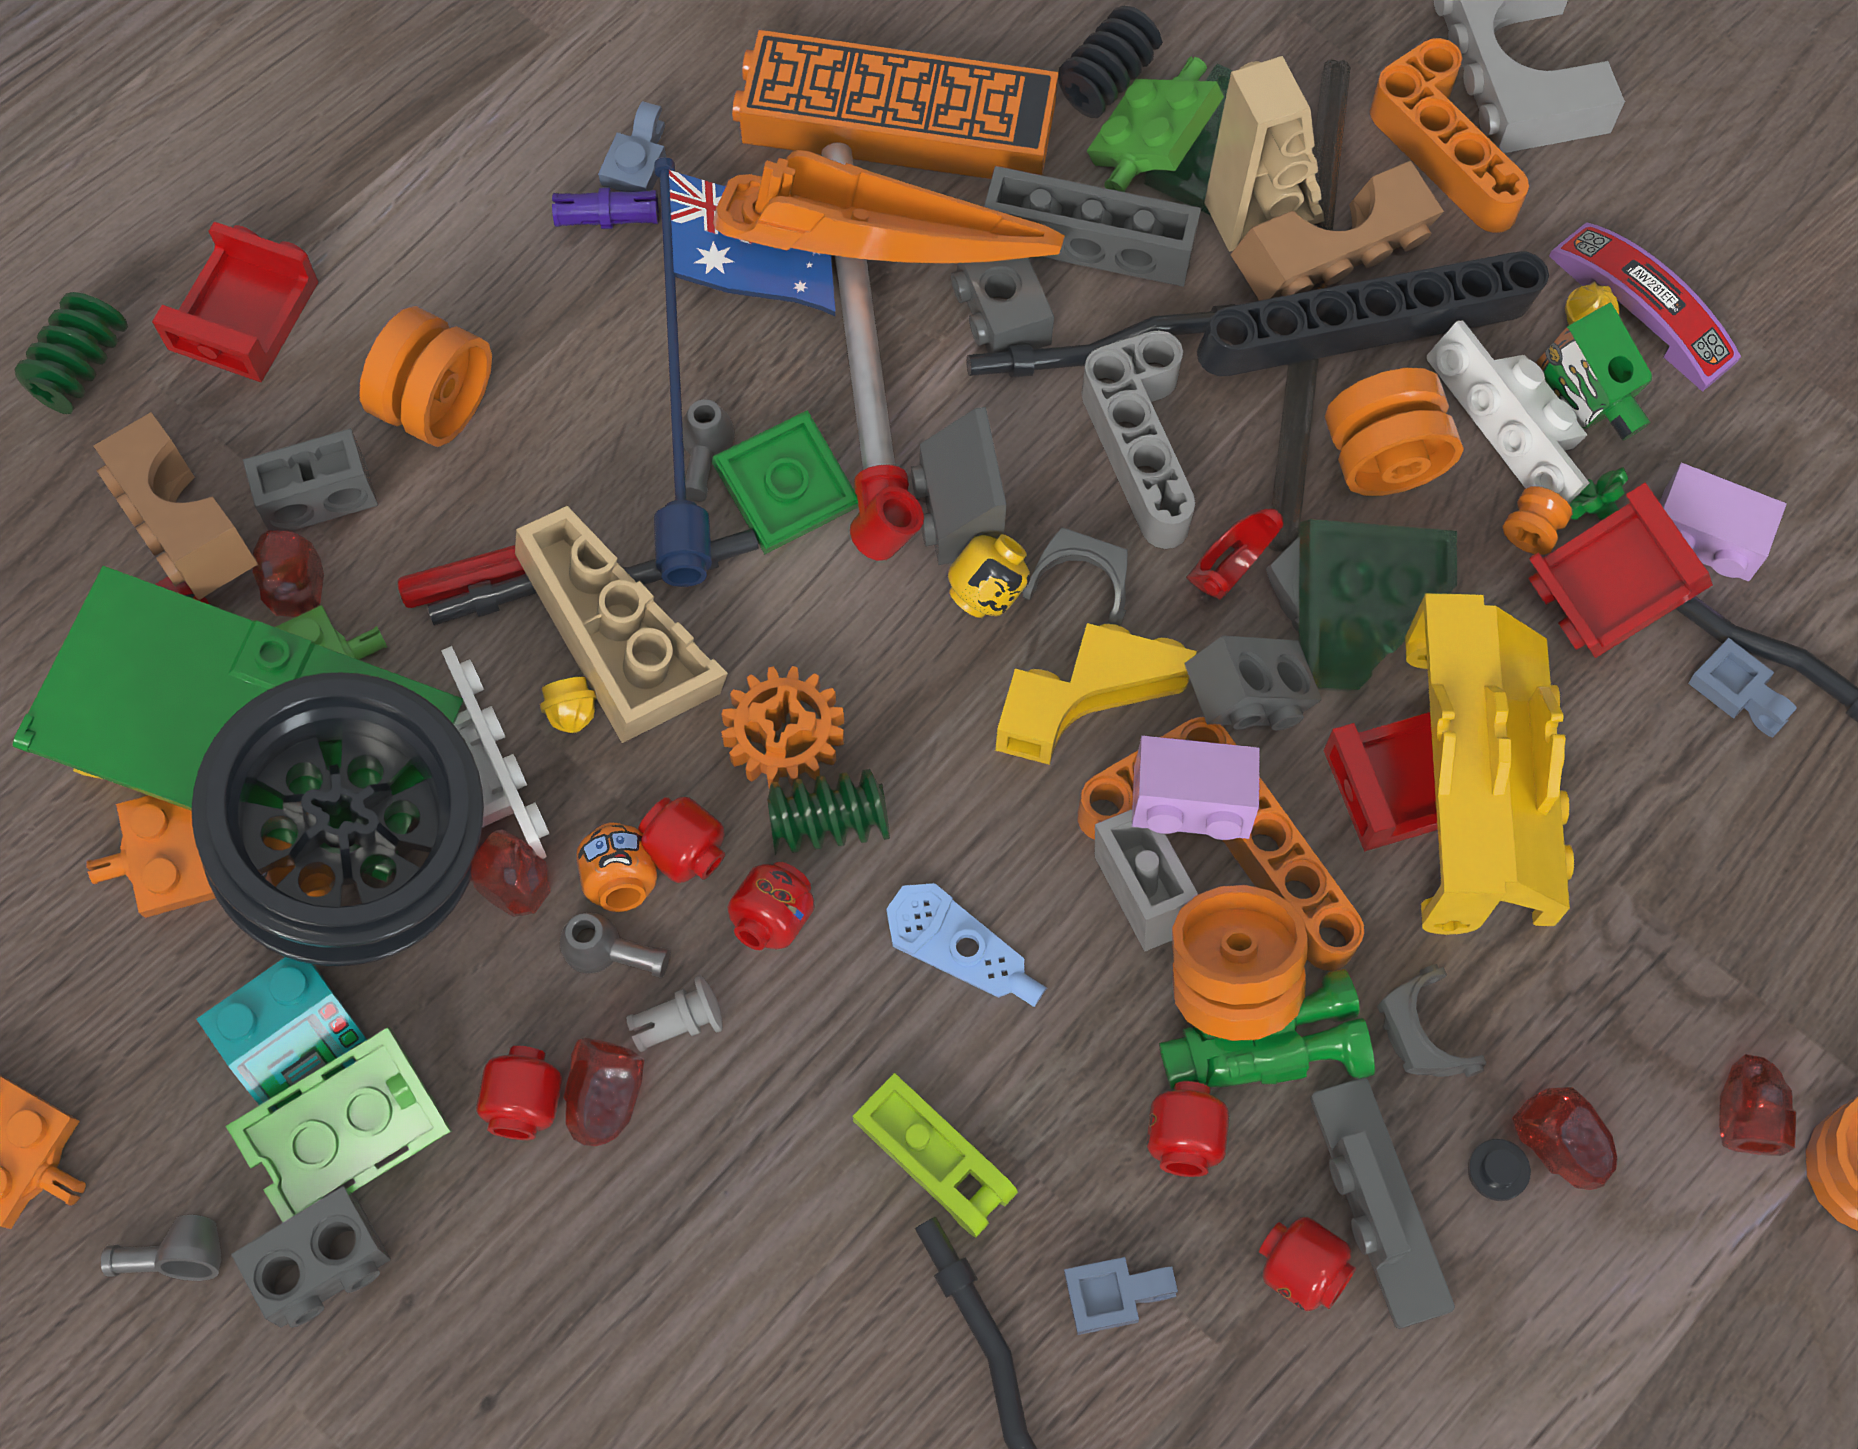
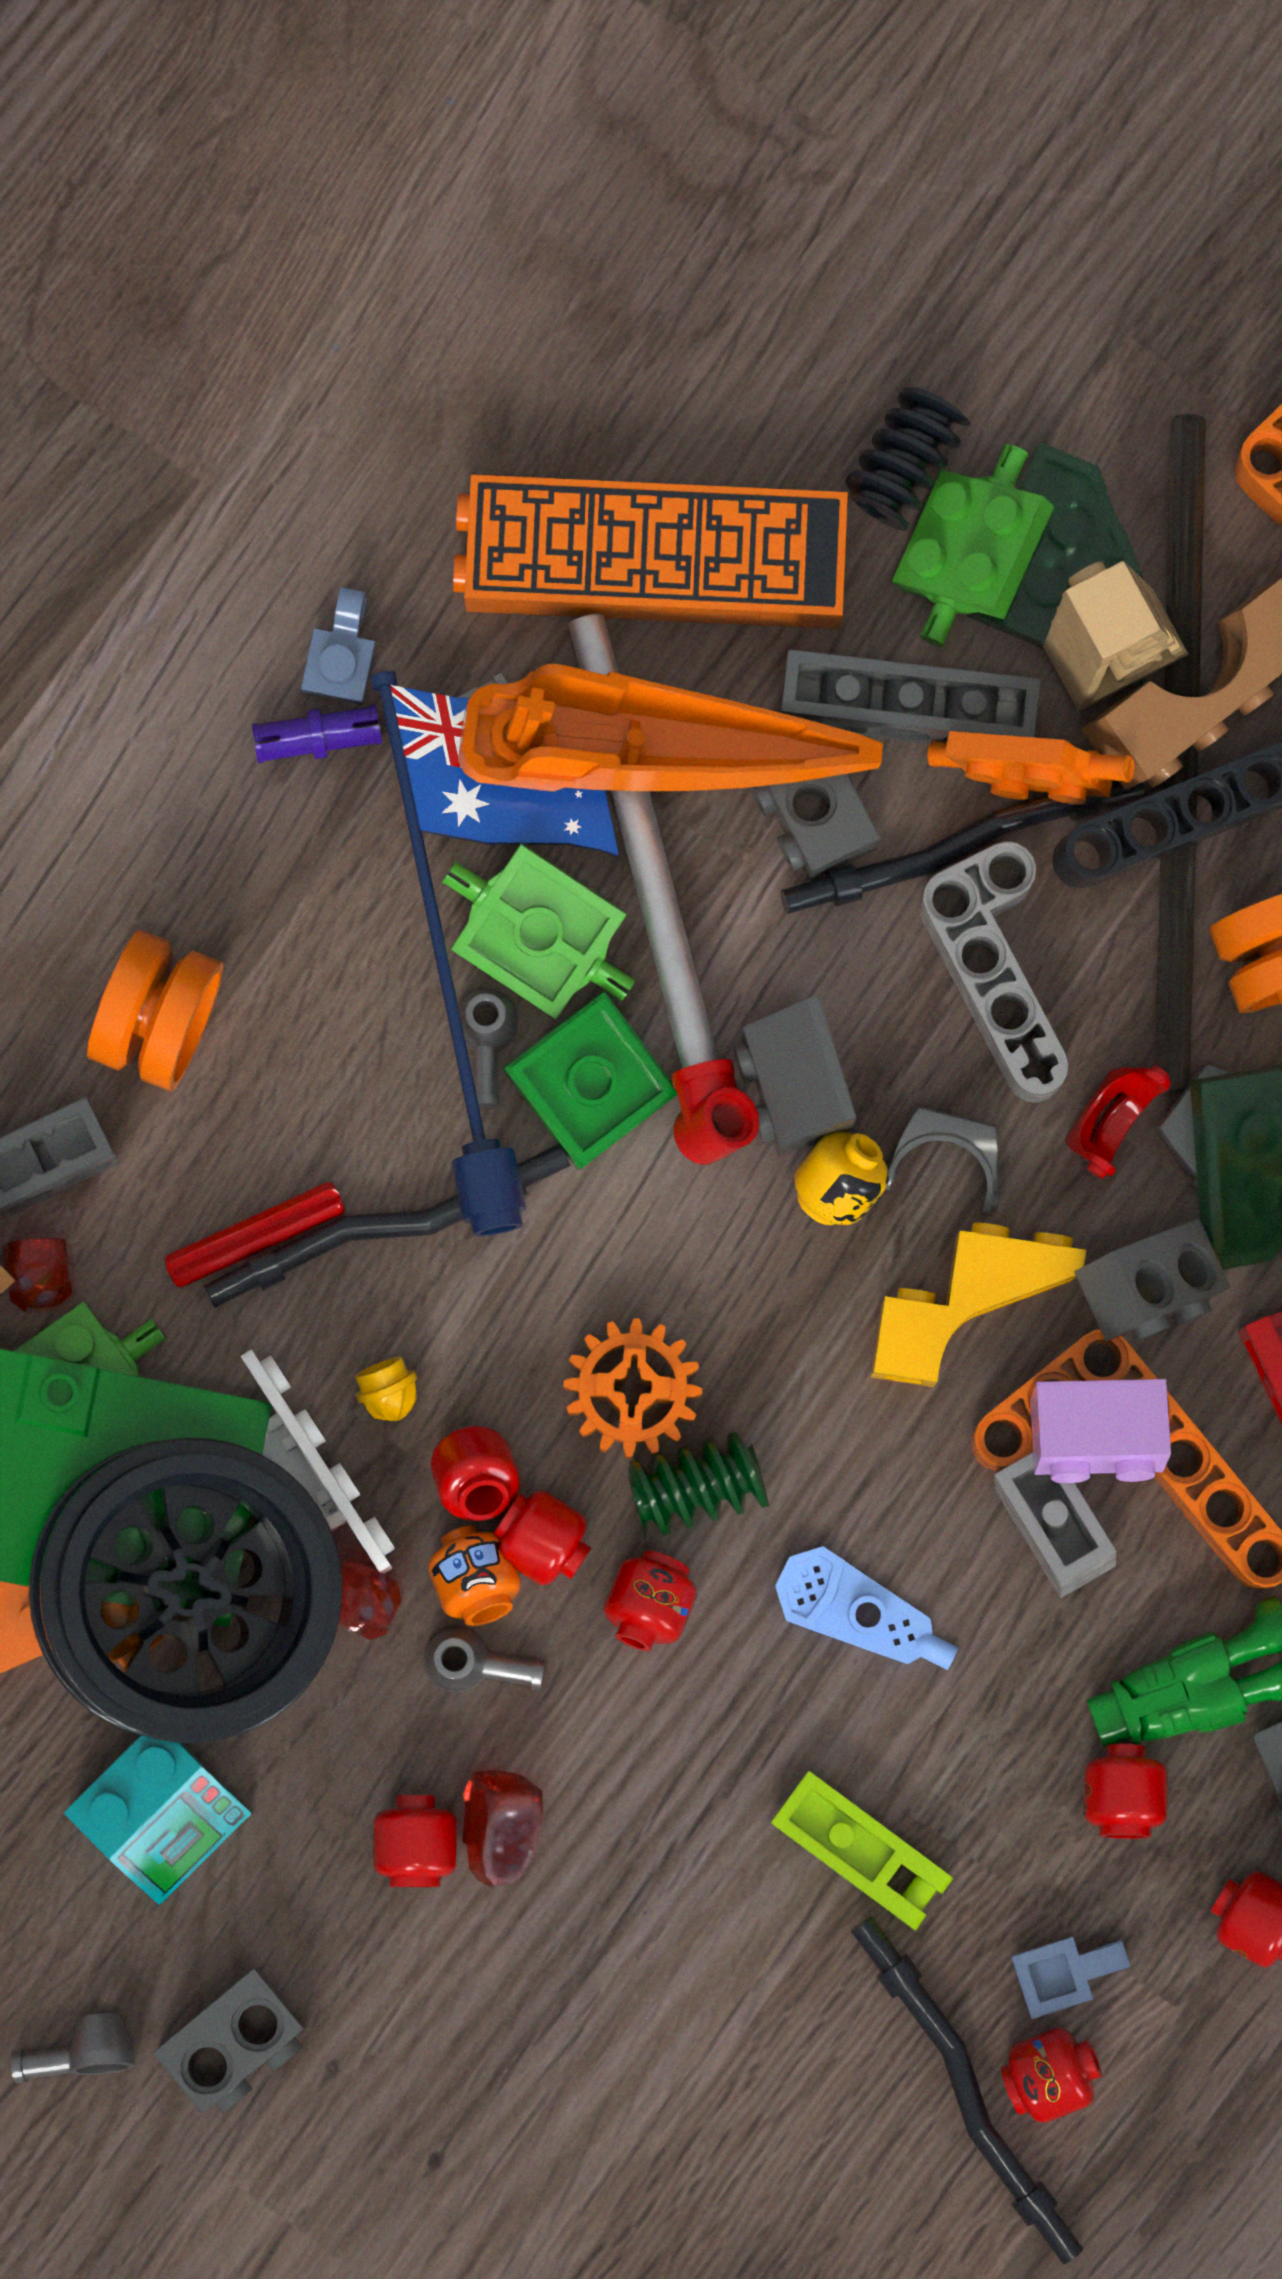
camera: 10 degrees left, 15 degrees up
(340, 1125) = (231, 1901): piece -> none
(620, 638) = (428, 1303): tan wedge -> none
(630, 777) = (475, 1473): none -> red head
(677, 1016) = (566, 1734): light grey pin -> none
(759, 360) = (538, 930): none -> bright green plate
(1090, 1389) = (1051, 2075): none -> red head
(1186, 267) = (1031, 764): none -> orange plate
(1239, 962) = (1164, 1616): orange wheel -> none

